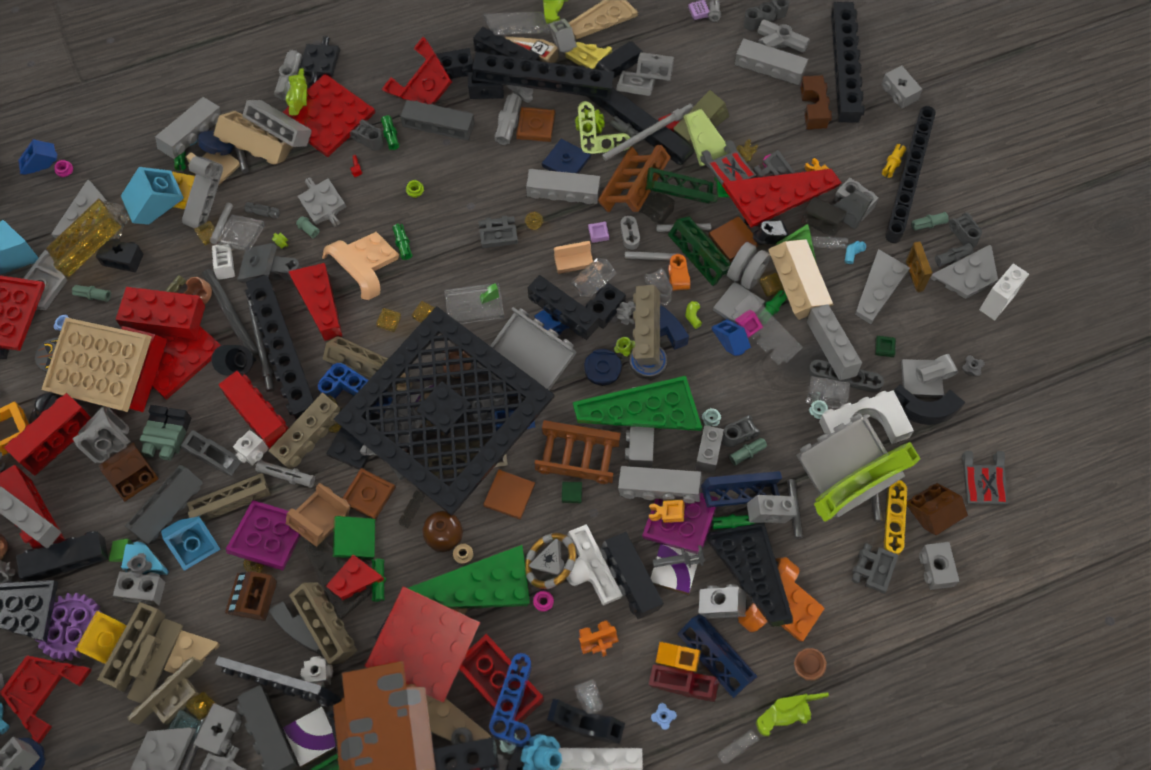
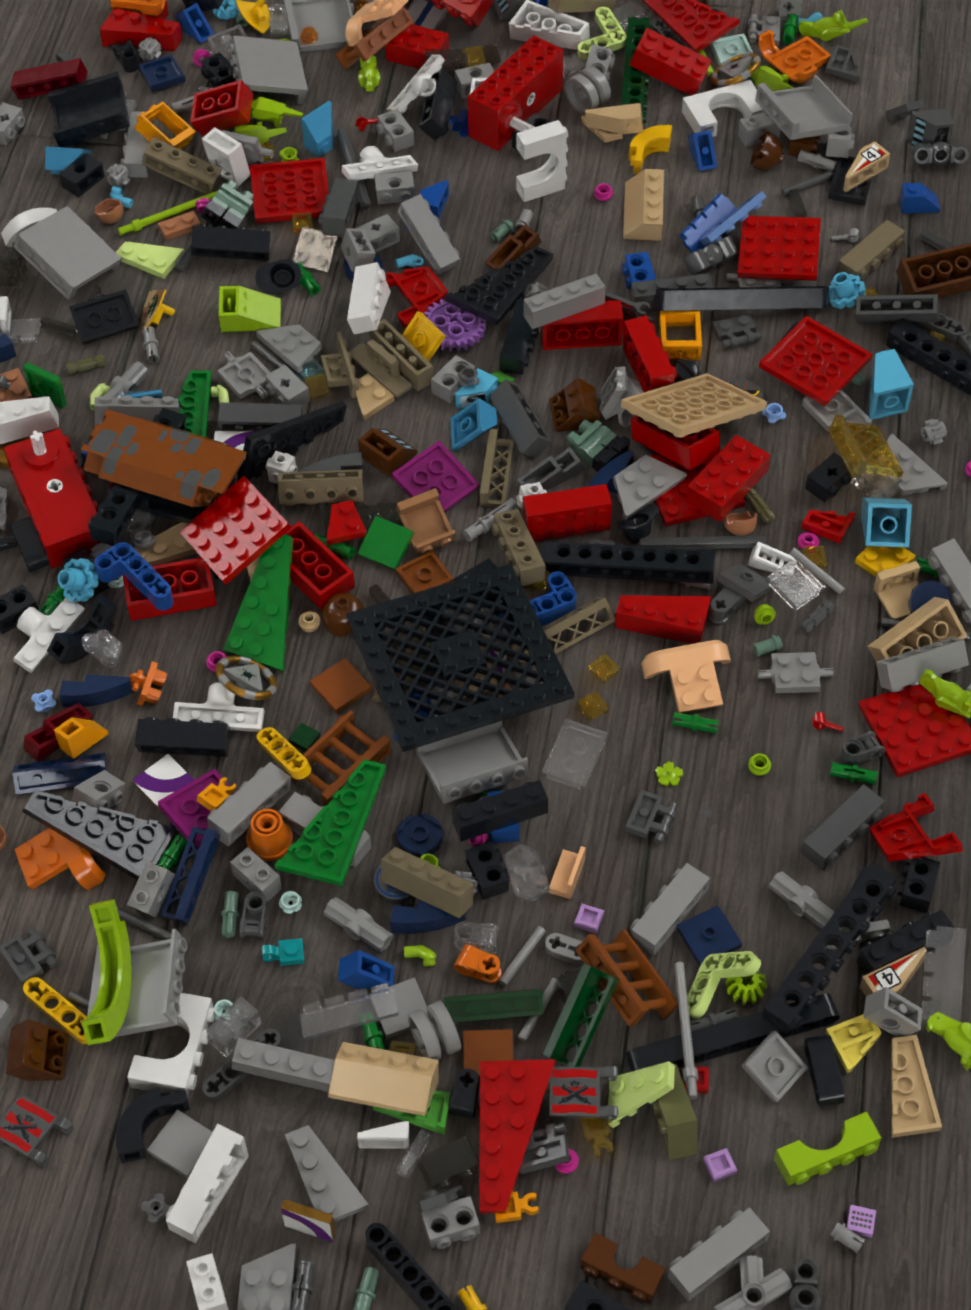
camera: 120 degrees right, 10 degrees down
(38, 205) = (933, 431): none -> light grey gear
(80, 707) = (367, 298): none -> white wedge
(91, 293) = (798, 443): sand green axle -> none
(168, 237) = (828, 524): none -> red wing
(194, 248) = (805, 537): none -> dark pink plate
(194, 371) = (644, 483): none -> light grey wing
(197, 405) = (607, 473): none -> dark blue slope
(203, 191) = (866, 561): light grey beam -> none
(415, 563) = (316, 568): none -> red brick
(454, 240) = (669, 774): none -> lime plant
(489, 295) = (570, 766): bright green tile -> none
(534, 224) = (644, 865): clear yellow plate -> none
(535, 124) = (781, 931): dark orange tile -> none
(599, 487) = (284, 752): none -> yellow beam
(631, 679) = (95, 690): none -> dark blue slope
(653, 28) = (800, 1162): none -> lime arch
(655, 66) = (788, 1101): light grey brick -> none
(663, 459) = (269, 835): none -> orange piece
(684, 558) = (163, 784): dark grey piece -> none
(699, 363) = (358, 924): none -> light grey piece
(715, 86) = (720, 1165): none -> lavender tile
(749, 397) = (289, 952): none -> teal plate
(750, 322) = (365, 990): dark pink slope -> none
(828, 258) = (386, 1137): none -> white slope
(852, 250) = (387, 1173): medium azure arm -> none
(885, 346) = (249, 1130): dark green tile -> none
(938, 340) = (207, 1183): none -> white wedge
(942, 367) = (174, 1160): light grey piece -> none

